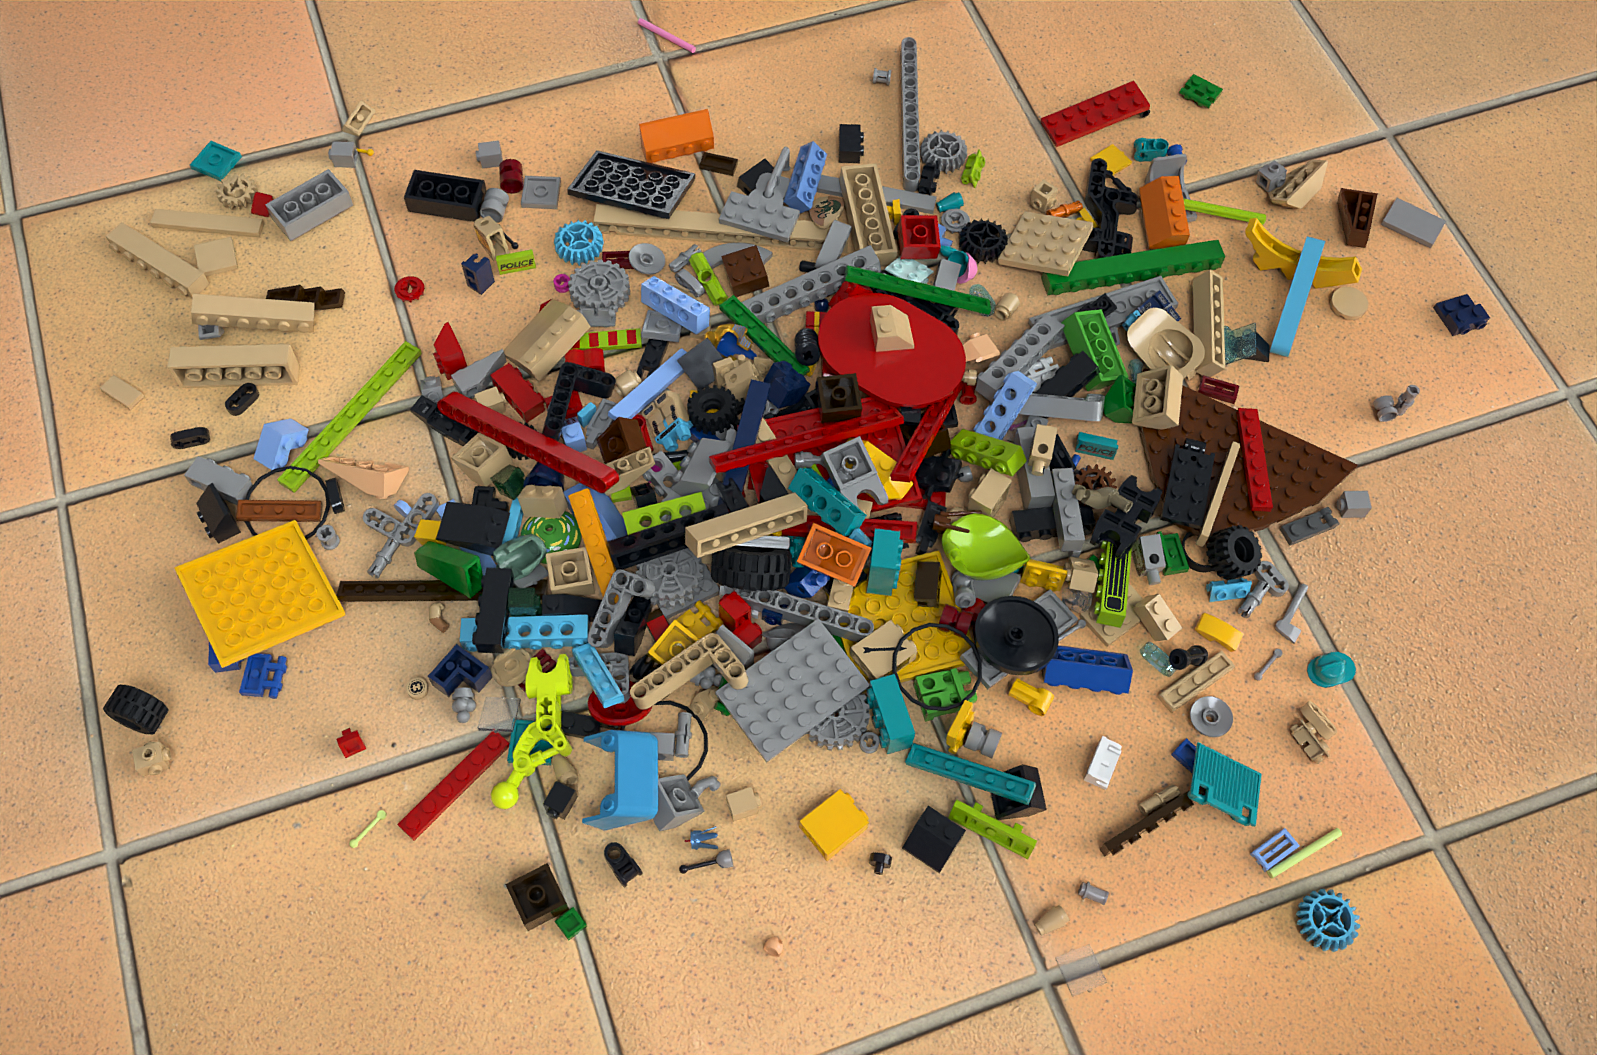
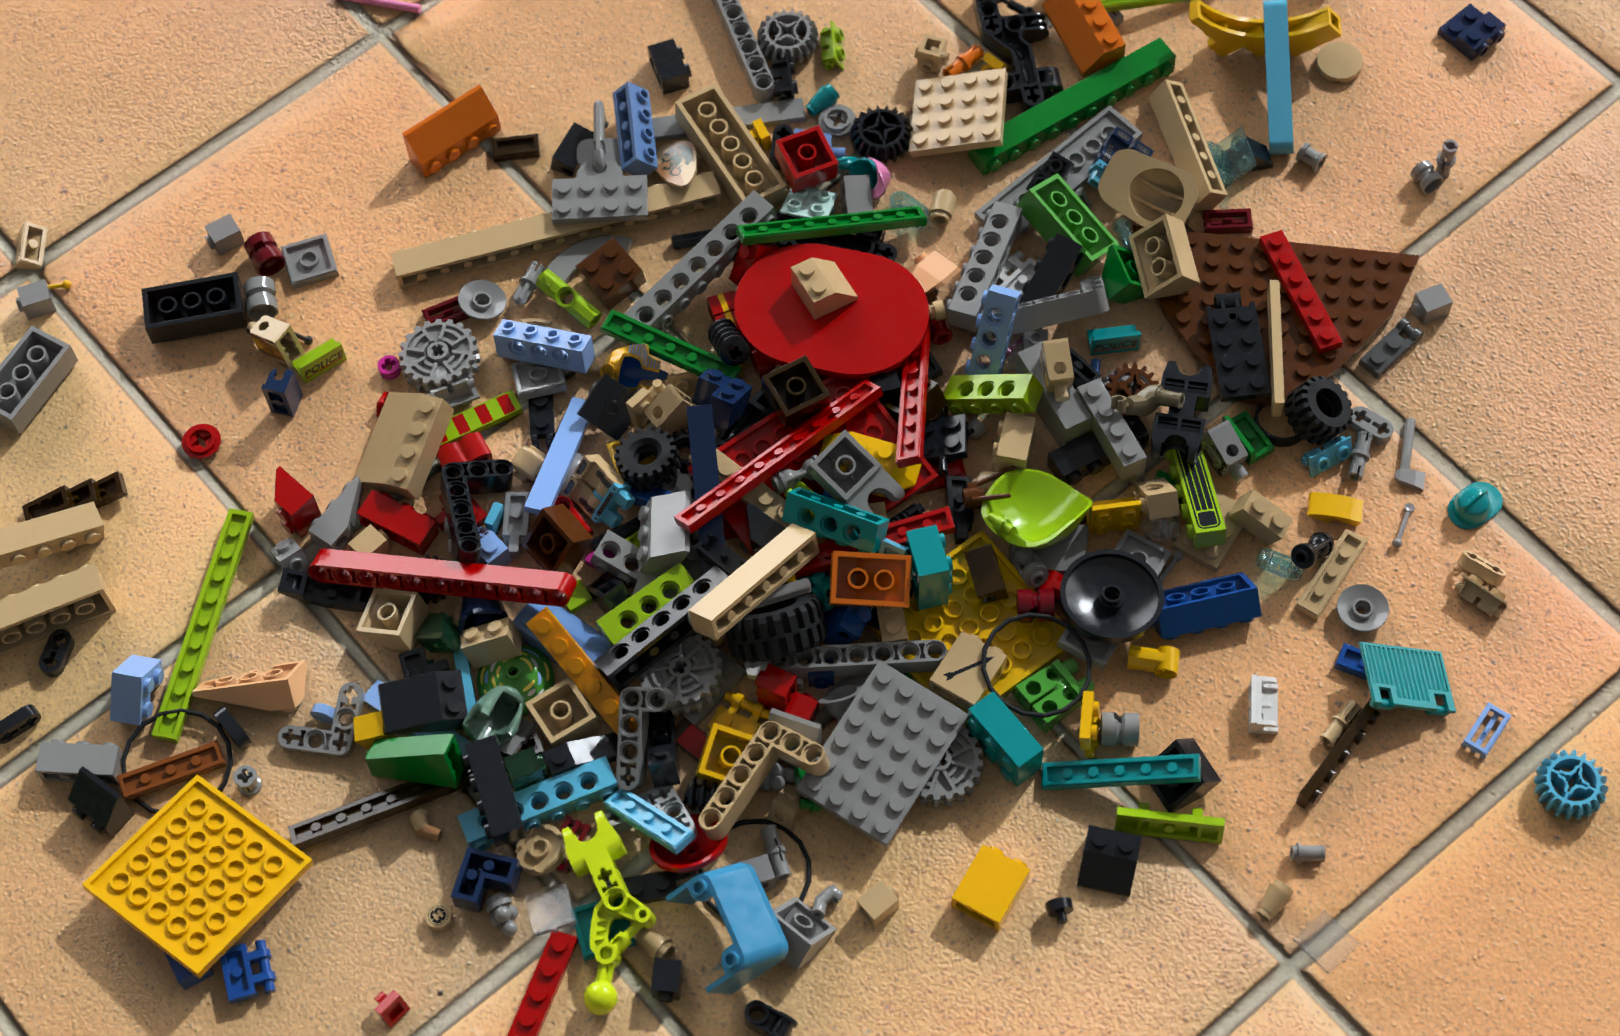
camera: 15 degrees left, 0 degrees up
(383, 558) = (326, 780): light grey pin -> none
(579, 248) = (382, 302): medium azure gear -> none
(631, 184) = (423, 212): black plate -> none
(631, 468) = (583, 560): tan slope -> none
(686, 280) = (545, 310): light grey beam -> none
(697, 837) = (842, 960): flat silver piece -> none
(723, 859) = (882, 973): hinge -> none
(821, 305) = (720, 284): dark blue hinge -> none
(833, 243) = (706, 204): light grey beam -> none
(869, 735) = (998, 776): light grey bush -> none
(1301, 364) = (1311, 157): none -> light grey bush
(1305, 852) = (1519, 721): yellowish green bar -> none

